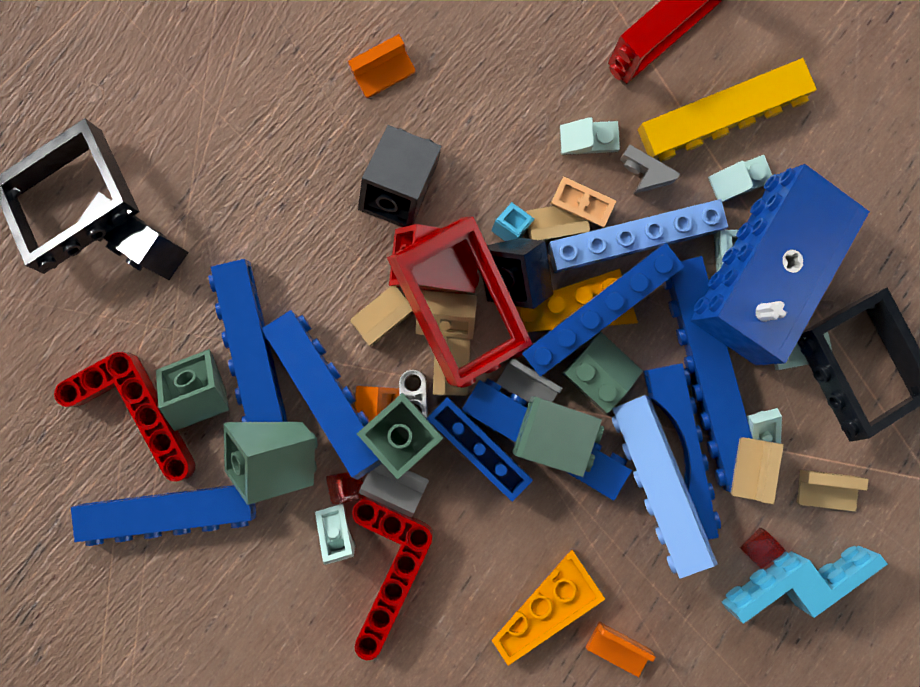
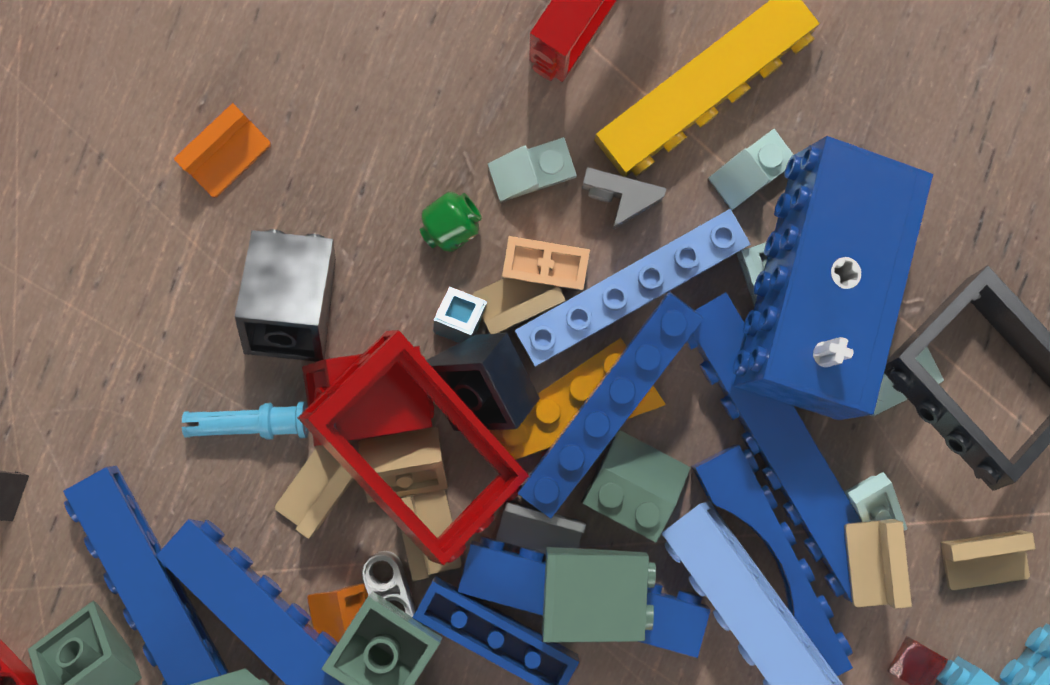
camera: 15 degrees left, 0 degrees up
(360, 258) = (265, 421): none -> medium azure pin
(524, 157) = (450, 221): none -> green head

